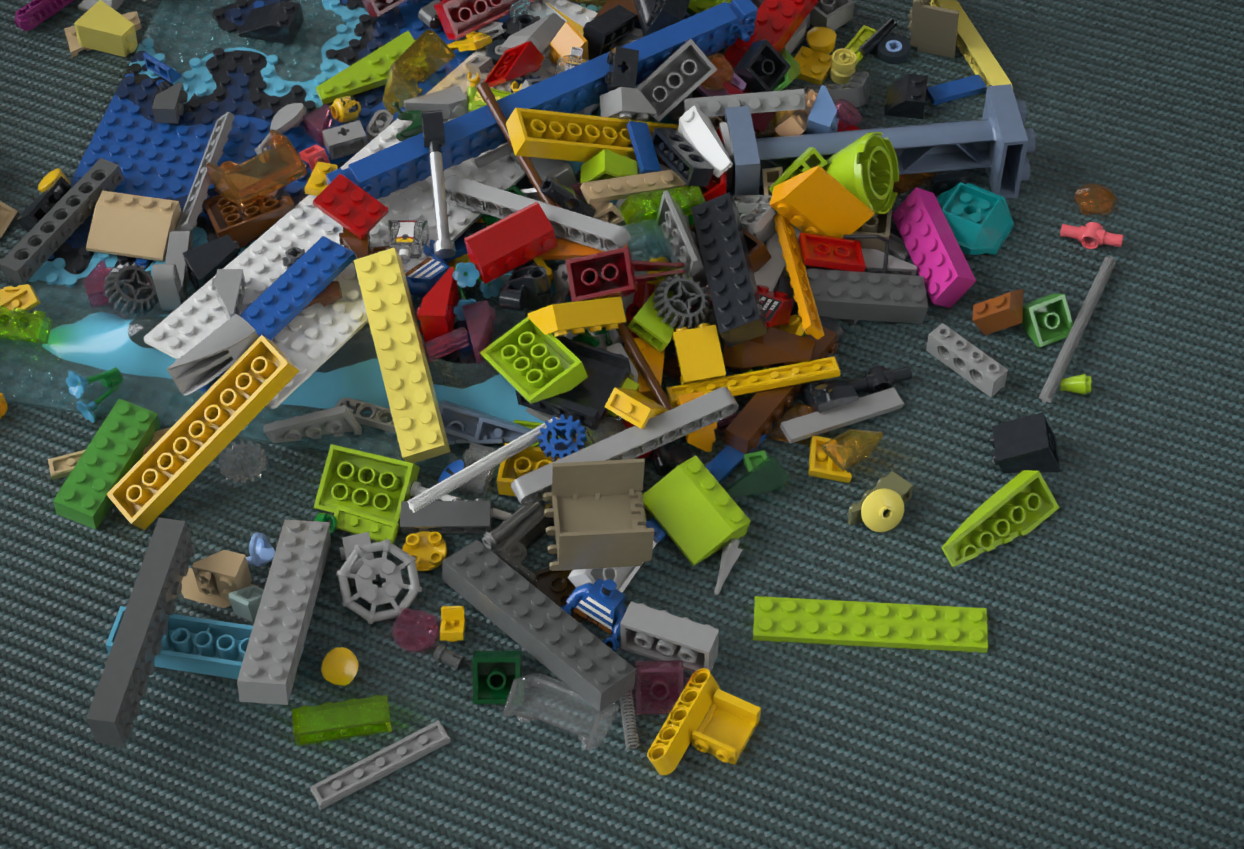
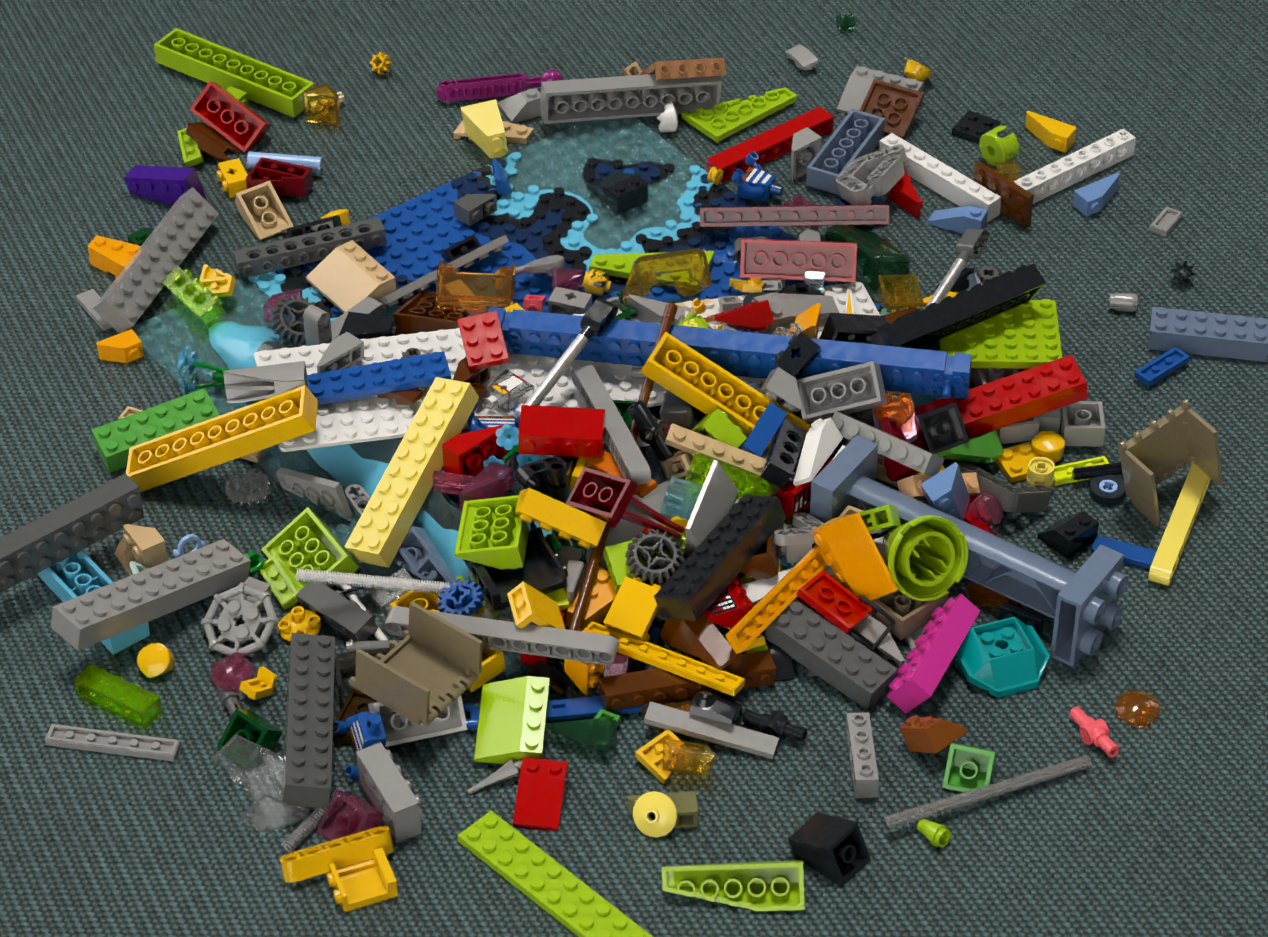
camera: 40 degrees right, 10 degrees down
(197, 147) = (460, 248): none -> black slope
(777, 555) = (541, 794): none -> red slope

